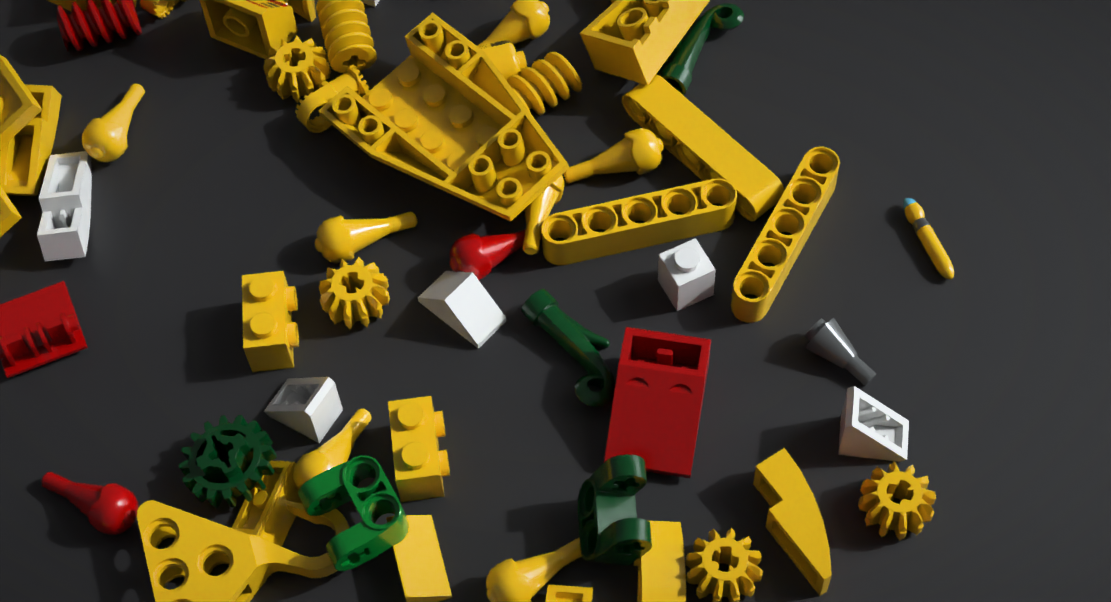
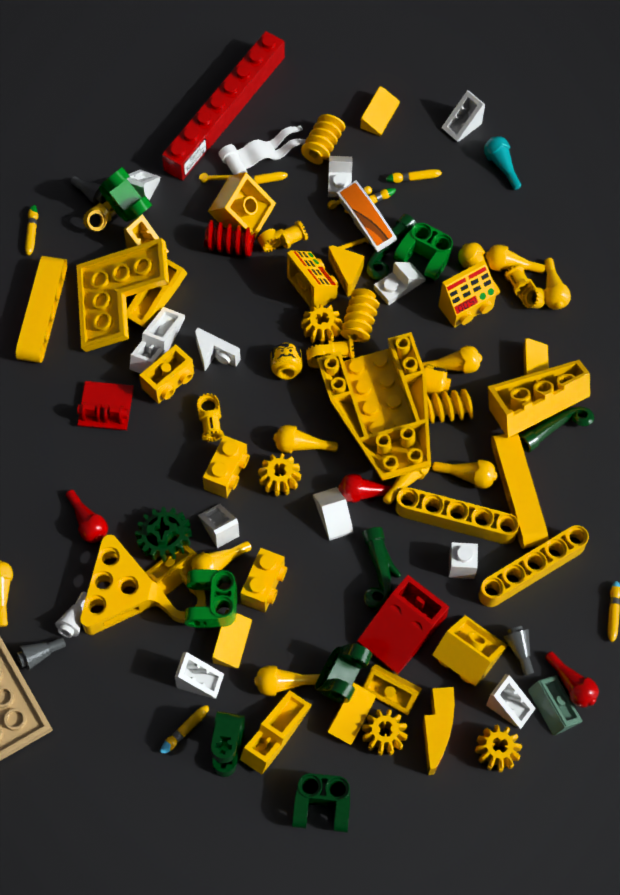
camera: 25 degrees right, 5 degrees up
(107, 136) = (197, 312): yellow piece -> none
(107, 237) = (167, 374): none -> yellow brick
(154, 171) = (212, 346): none -> white slope
(206, 268) = (210, 417): none -> yellow connector
(274, 139) = (286, 361): none -> yellow head
(695, 503) = (392, 689): none -> yellow slope
(771, 391) = (469, 650): none -> yellow slope
(931, 402) = (554, 705): none -> sand green slope
(956, 360) = (582, 690): none -> red piece

